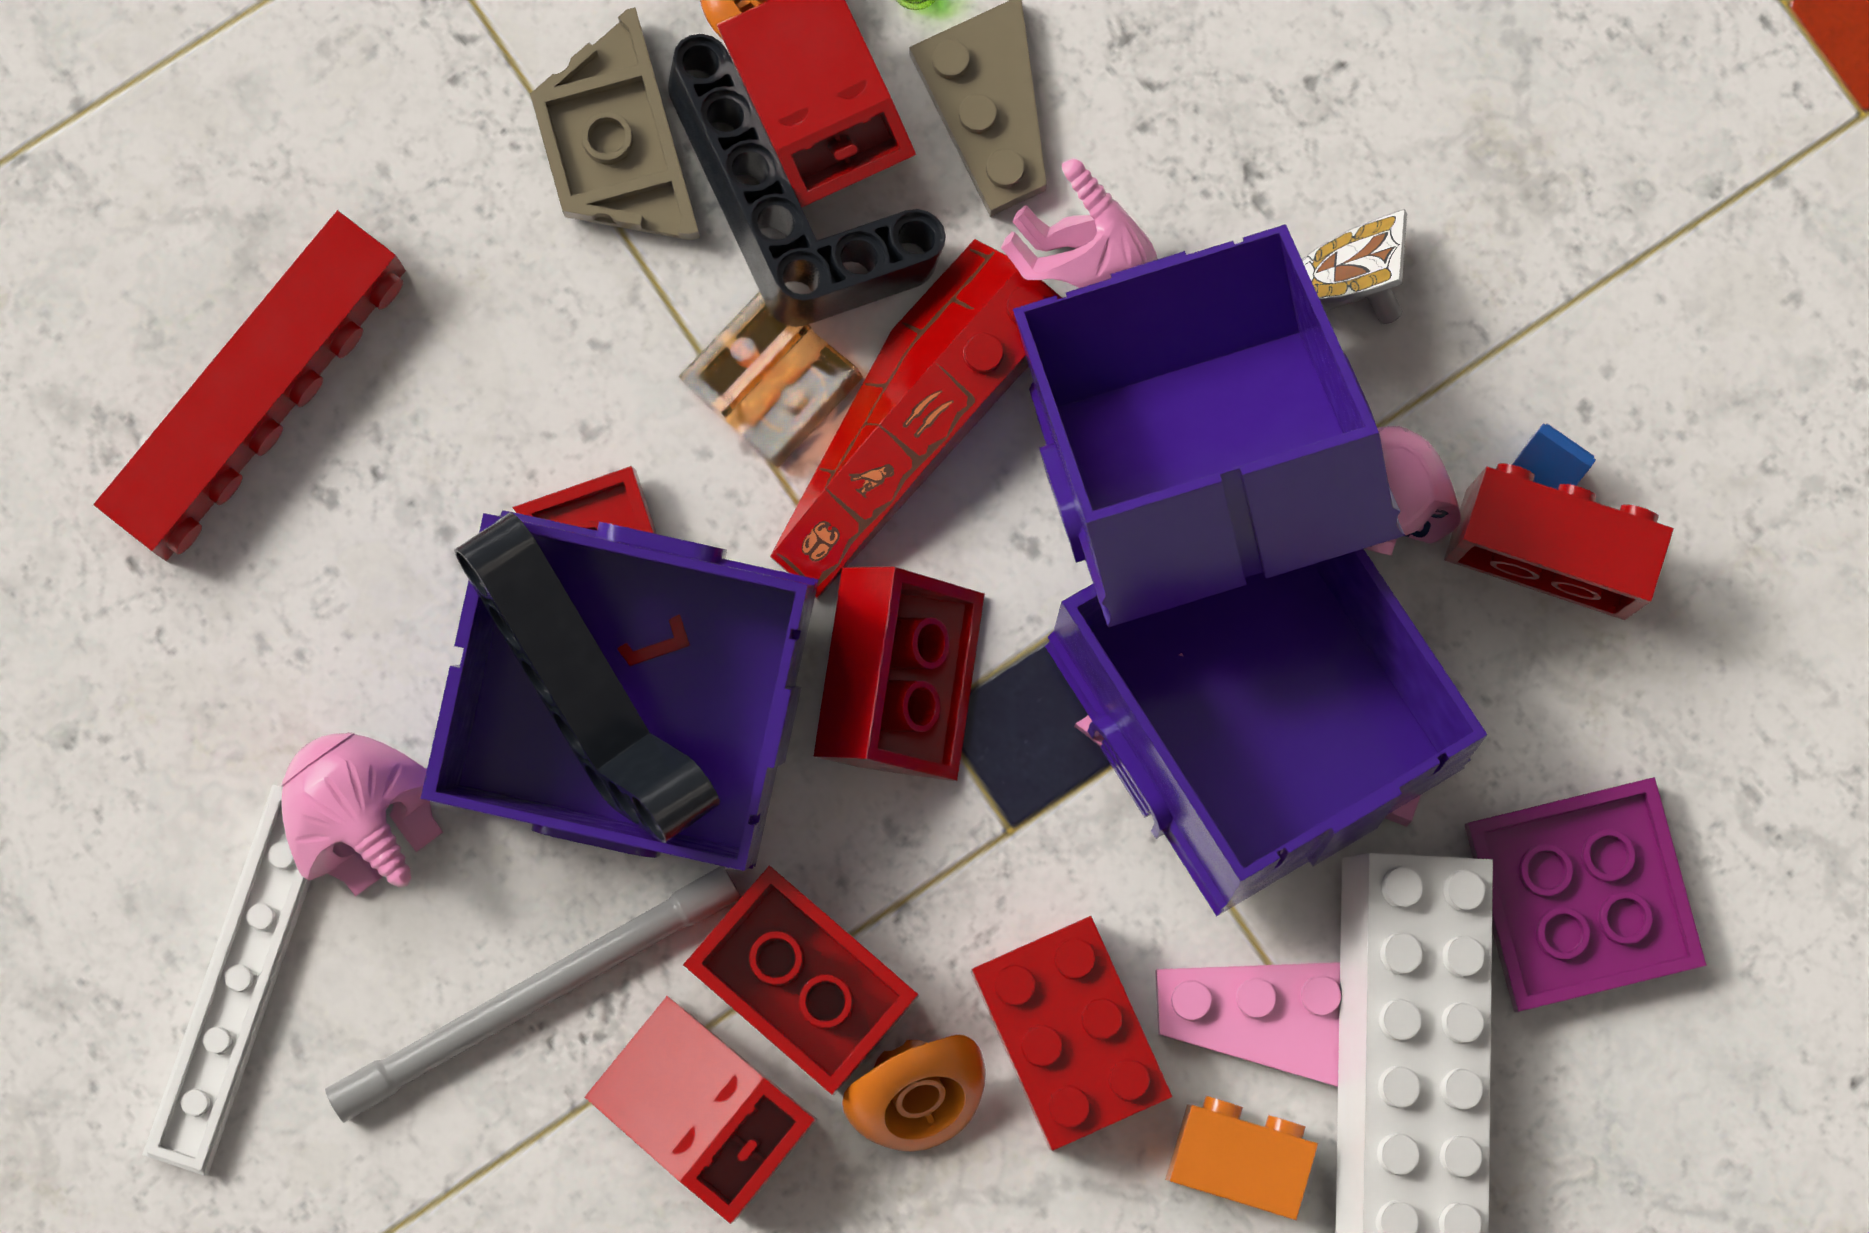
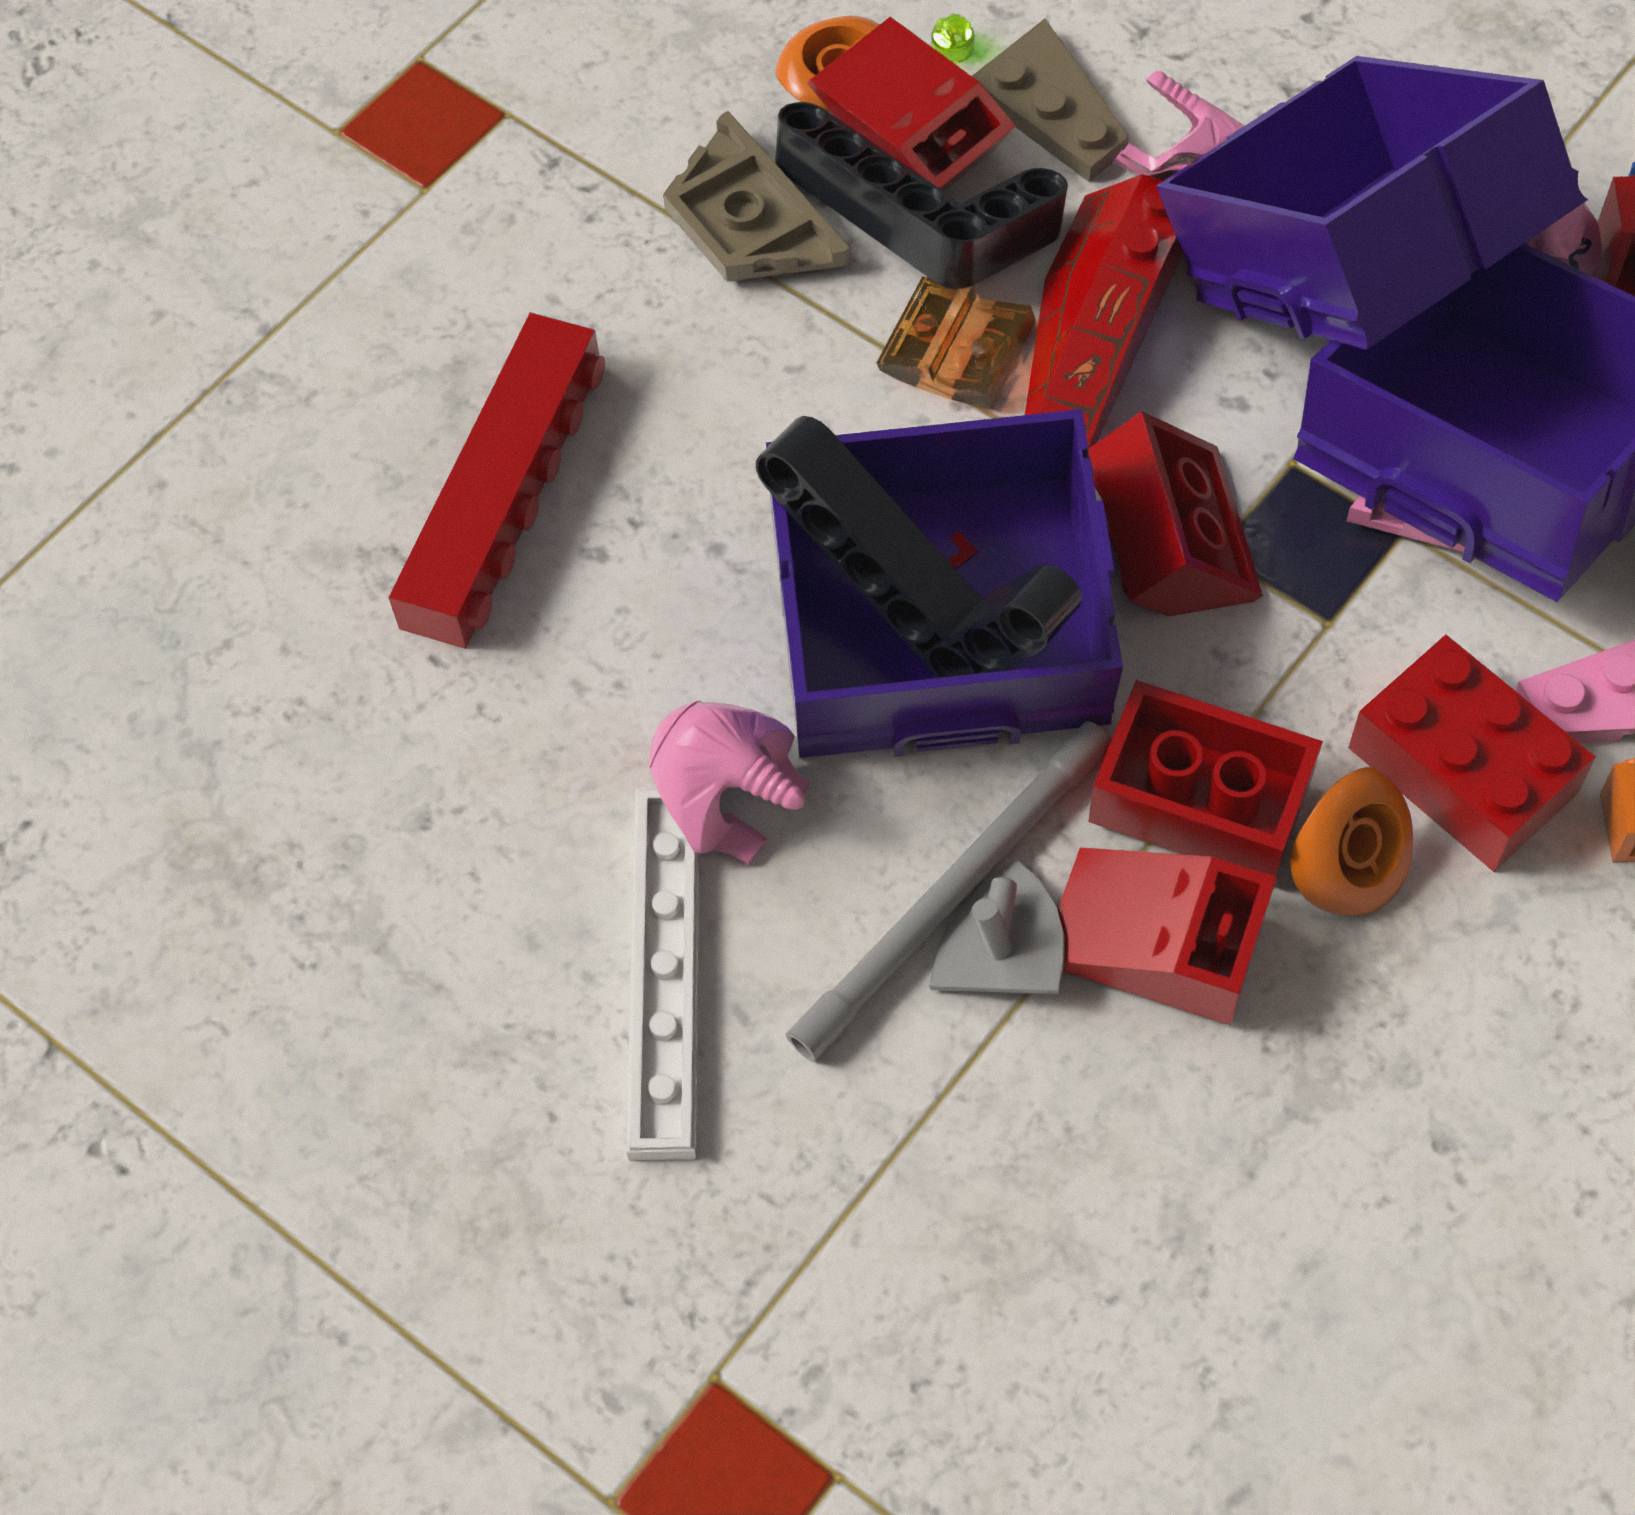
camera: 15 degrees left, 20 degrees down
(561, 1062) = (1003, 939): none -> light grey shield

